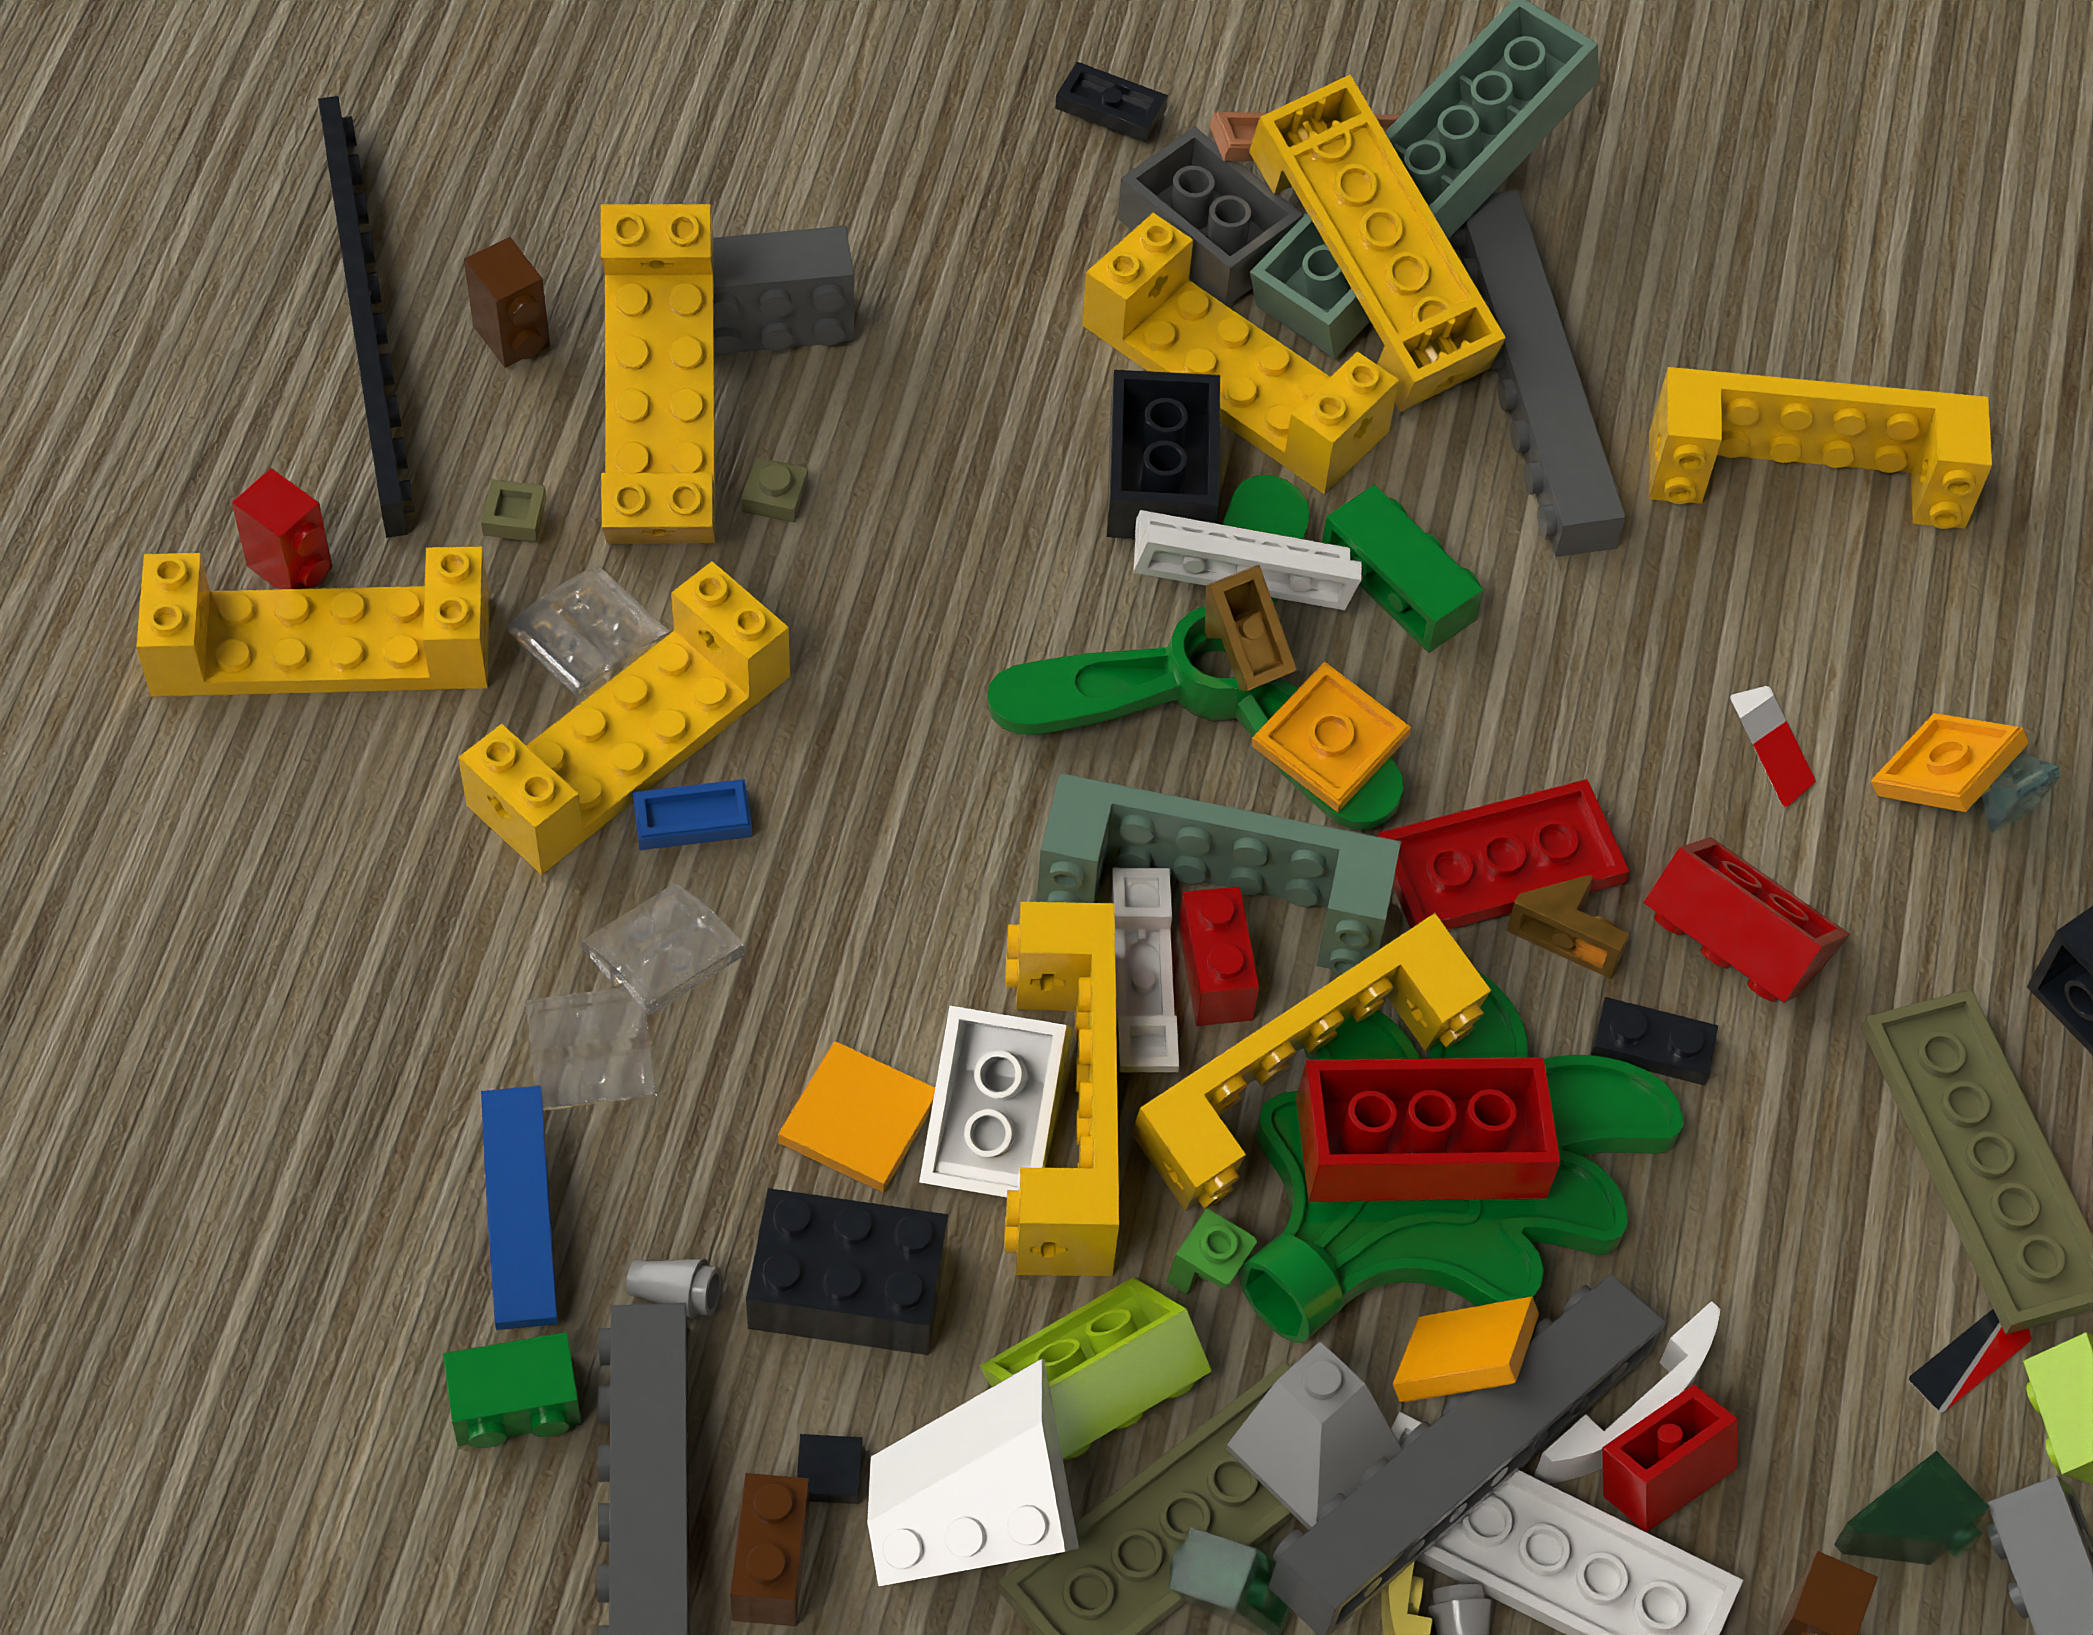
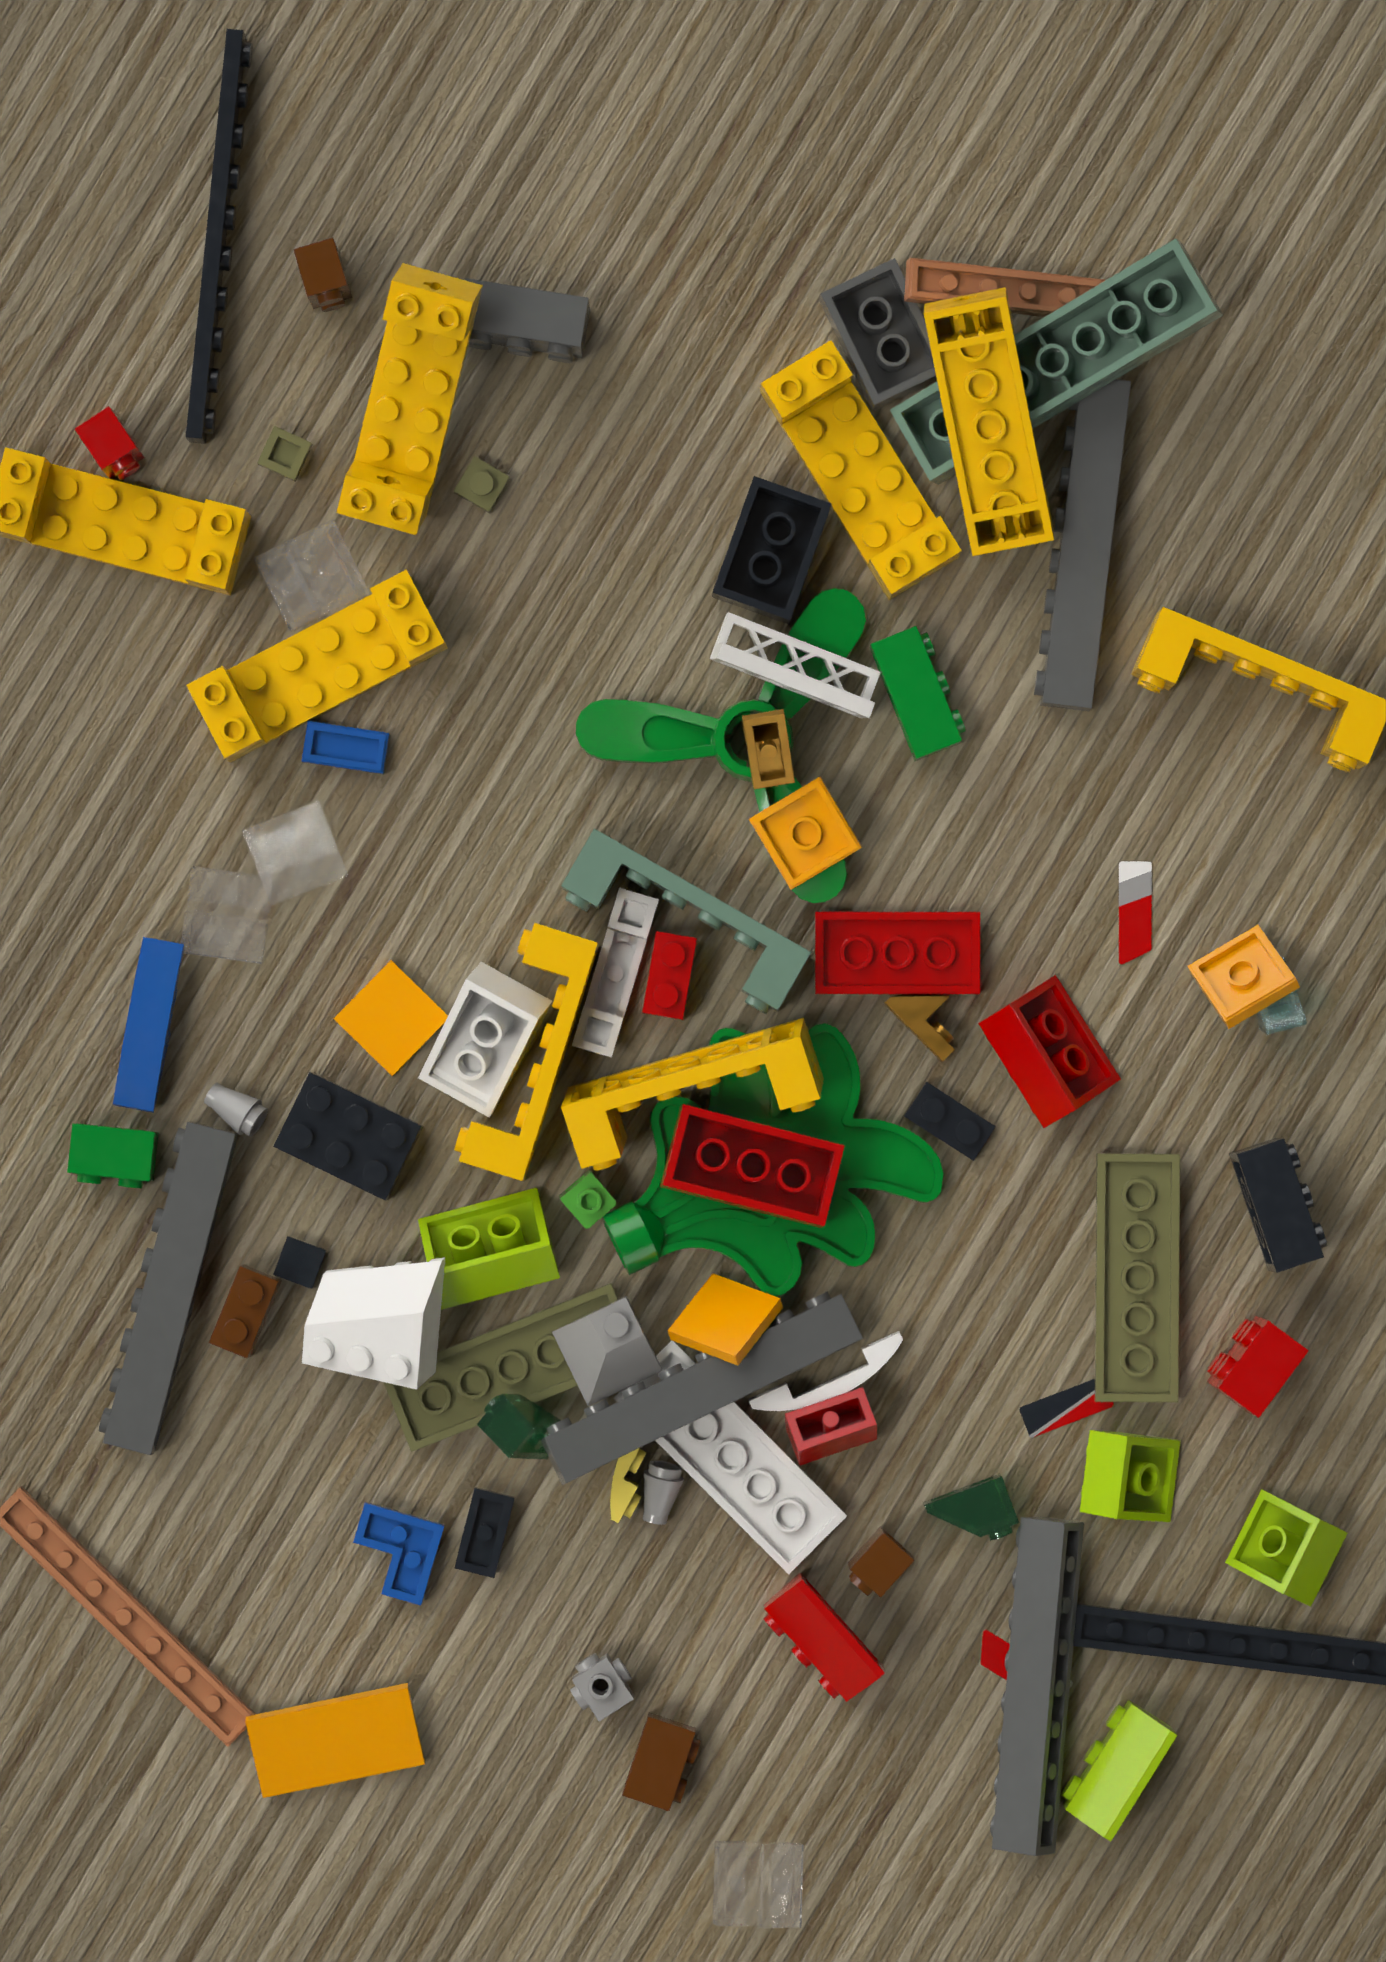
camera: 25 degrees right, 30 degrees up
(1111, 101) = (850, 187): black plate -> none

